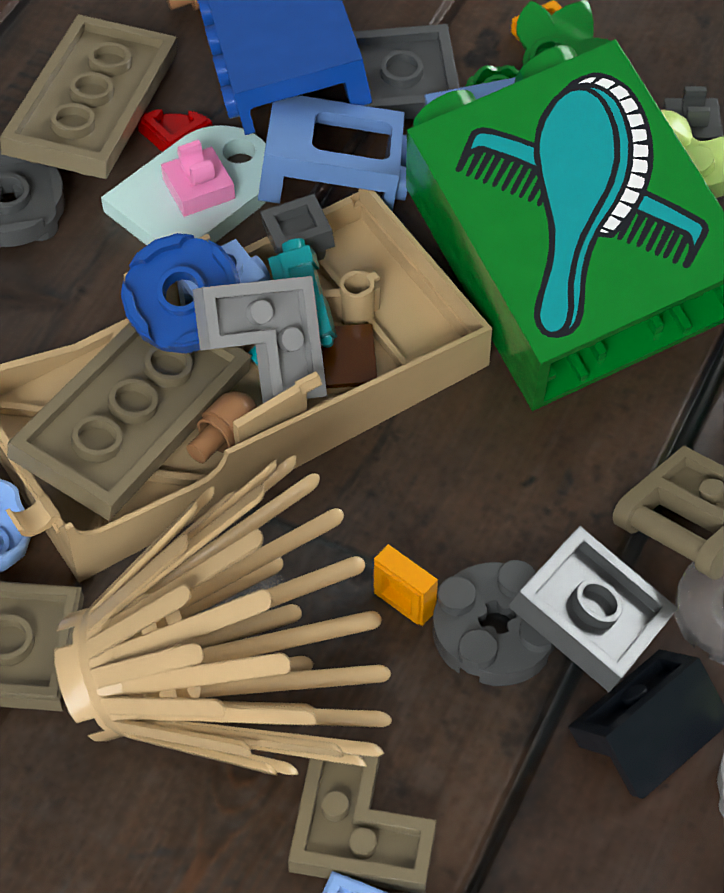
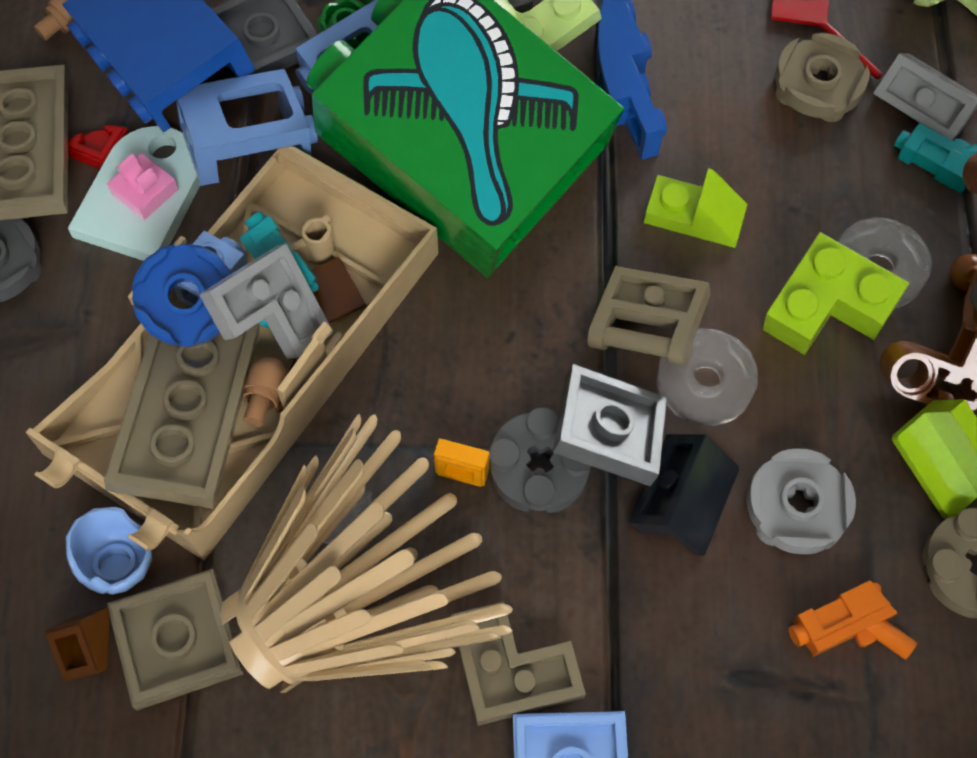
camera: 25 degrees left, 10 degrees up
(298, 219) = (245, 197): dark grey tile -> none

